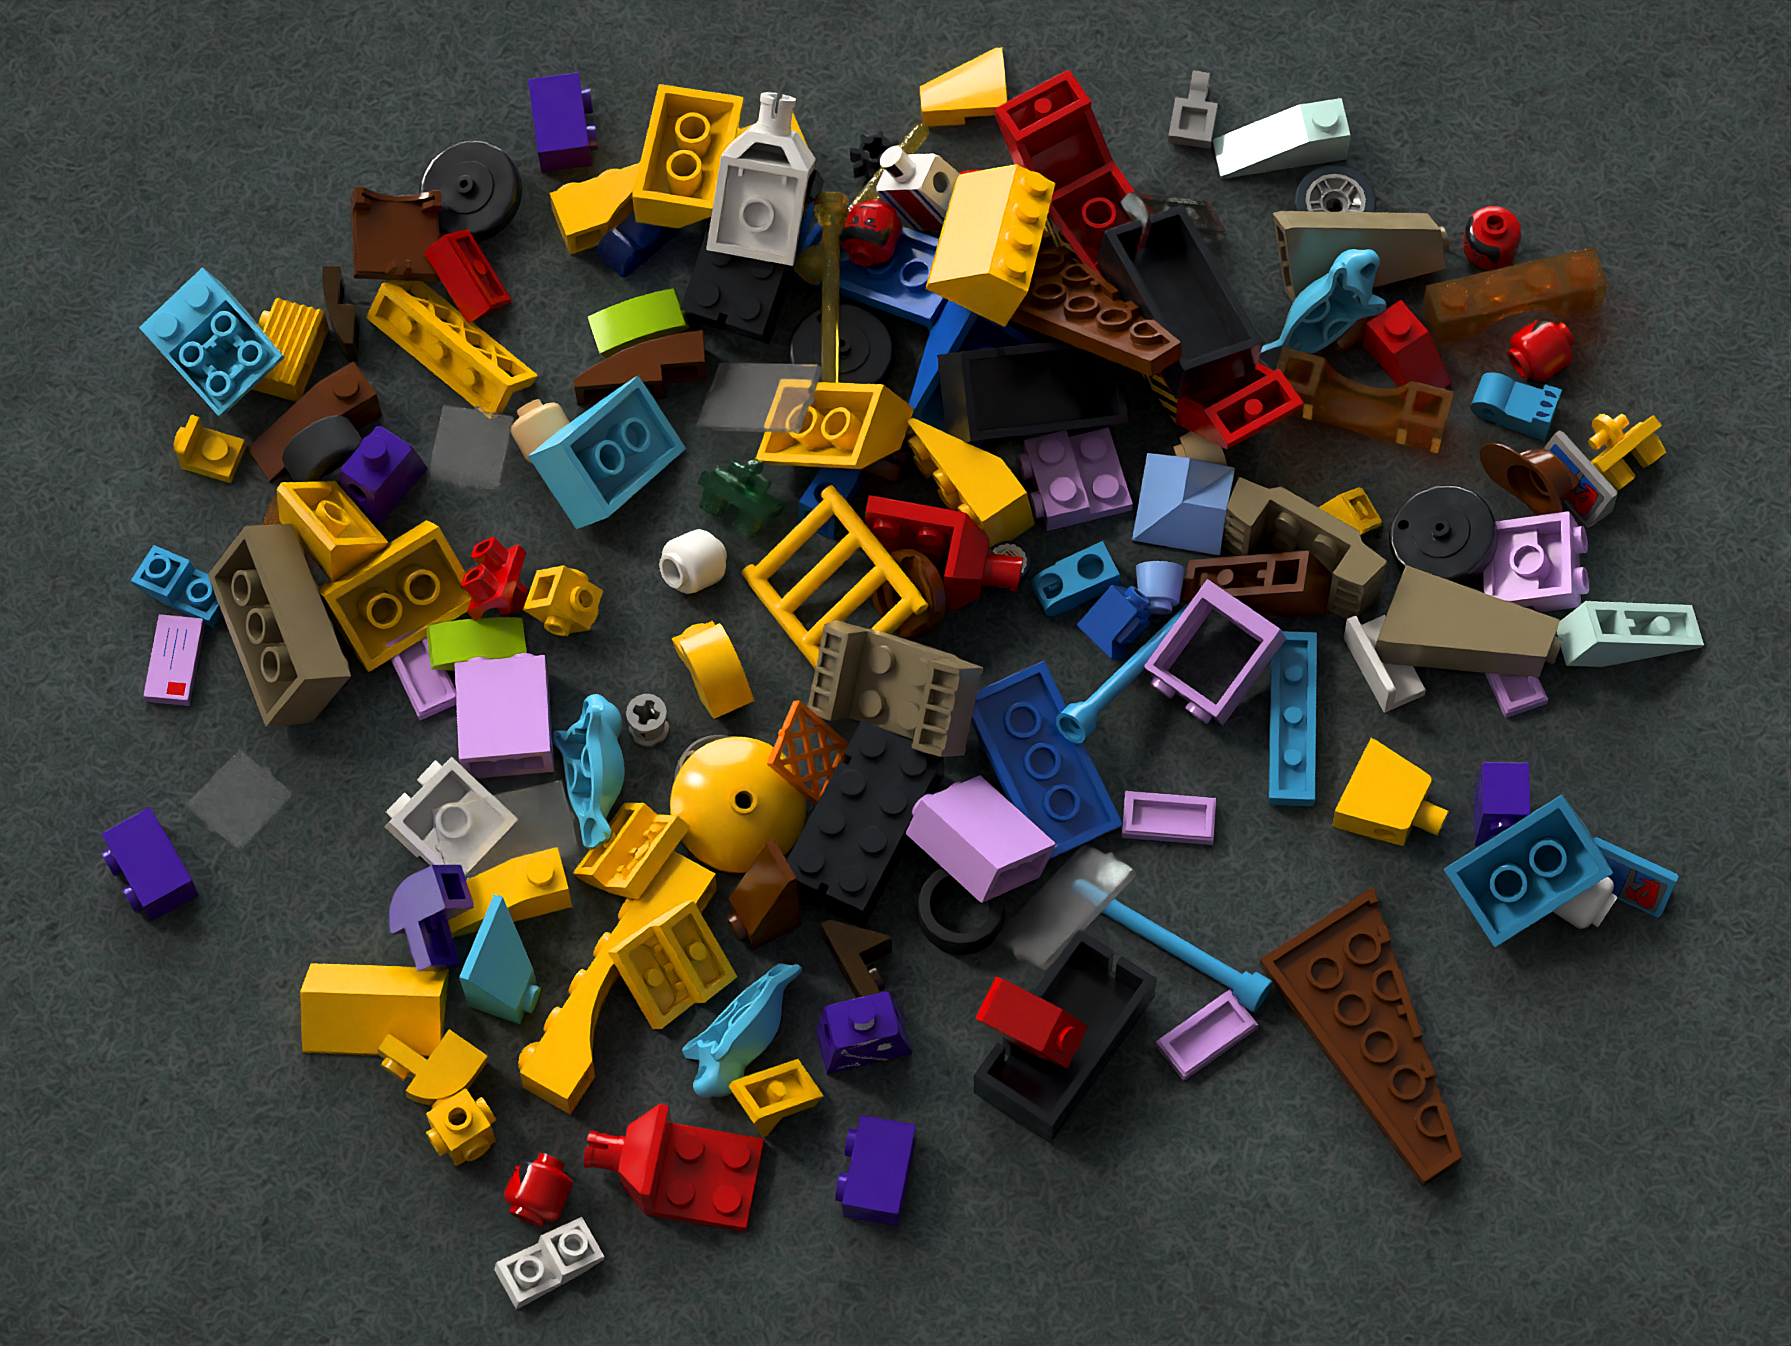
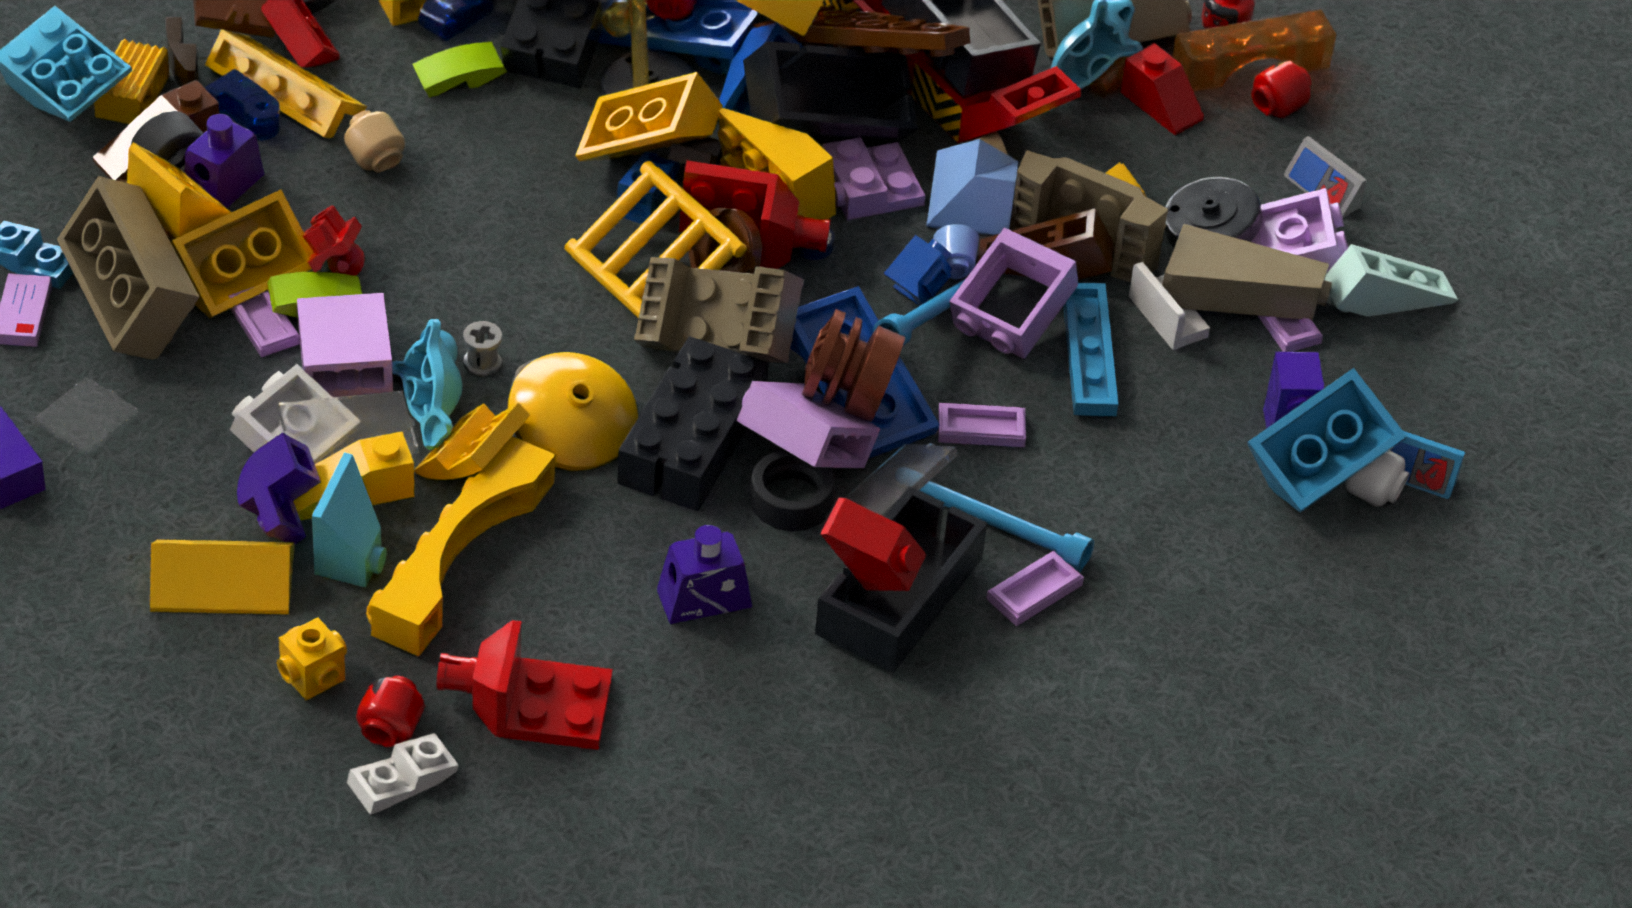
camera: 10 degrees left, 20 degrees down
(208, 450) = (54, 157): yellow bracket -> none
(407, 377) = (247, 104): none -> clear blue leg
(445, 1073) = (278, 613): yellow brick -> none
(470, 448) = (306, 155): clear piece -> none
(563, 600) = (399, 257): yellow brick -> none
(607, 453) = (434, 150): medium azure slope -> none
(655, 361) = (466, 98): reddish brown slope -> none
(672, 964) = (516, 527): yellow slope -> none
(693, 561) = (520, 232): white head -> none
(714, 668) = (545, 306): yellow brick -> none
(739, 1033) = (584, 586): medium azure animal -> none
(743, 488) = (576, 195): clear green hips -> none
(759, 397) = (576, 111): clear piece -> none
(765, 900) = (607, 469): reddish brown slope -> none
(776, 1094) = (615, 629): yellow slope -> none
(786, 736) = (624, 379): orange window -> none
(854, 949) = (686, 512): dark brown slope -> none
(878, 1170) = (727, 690): dark purple brick -> none
(1028, 779) = (853, 365): none -> copper wheel
(1076, 579) = (876, 245): dark azure leg -> none
(1360, 1014) = (1186, 574): reddish brown wing -> none
(1387, 798) = (1185, 404): yellow torso -> none
(1405, 414) = (1167, 132): clear orange arch -> none
(1516, 404) = (1265, 127): dark azure leg -> none
(1531, 476) = (1281, 169): reddish brown piece -> none
(1638, 440) = (1358, 153): yellow hips -> none

